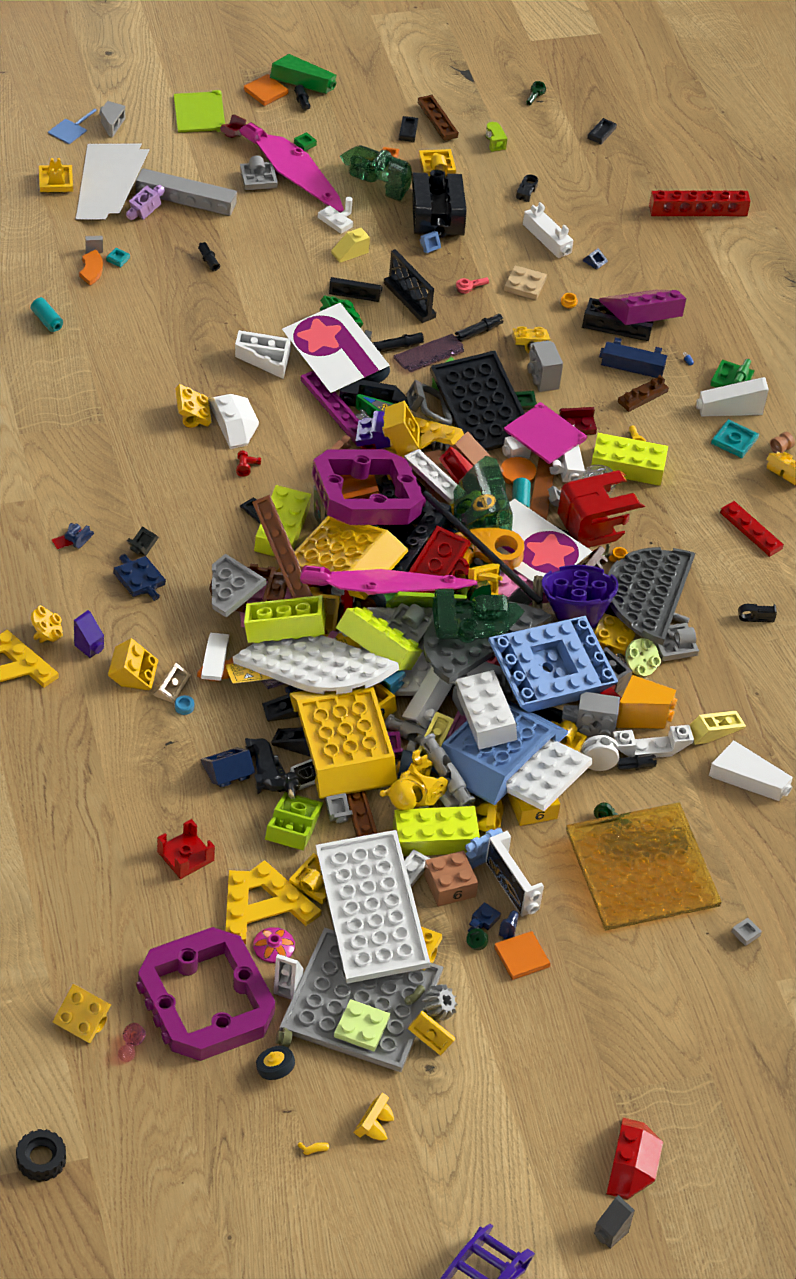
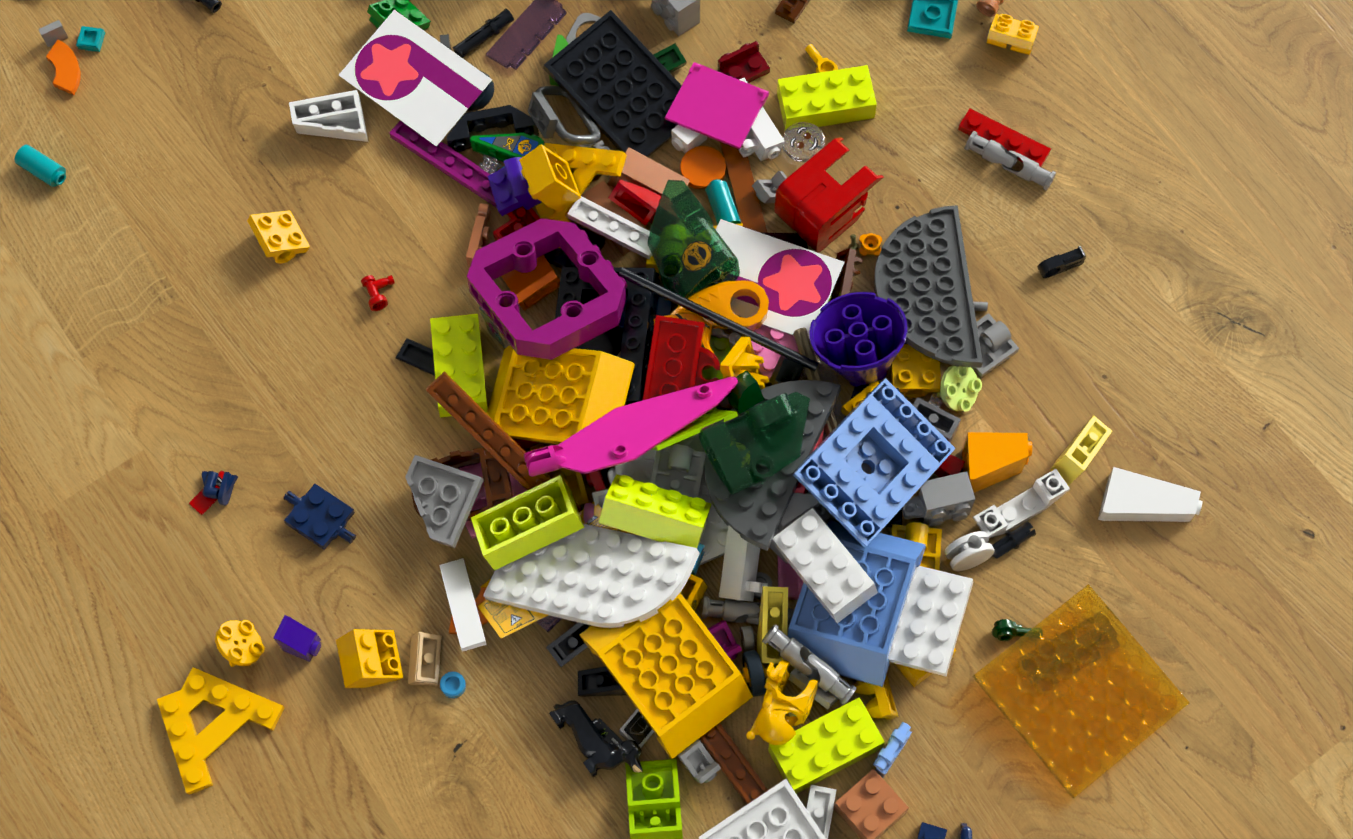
camera: 15 degrees left, 20 degrees up
(143, 541) = (302, 464): pearl dark grey bracket -> none
(228, 766) = (543, 756): dark blue slope -> none
(234, 418) = (335, 228): white wedge -> none
(523, 895) = (939, 778): panel -> none
(740, 533) = (996, 153): none -> light grey piece
(746, 931) = (1232, 730): light grey plate -> none

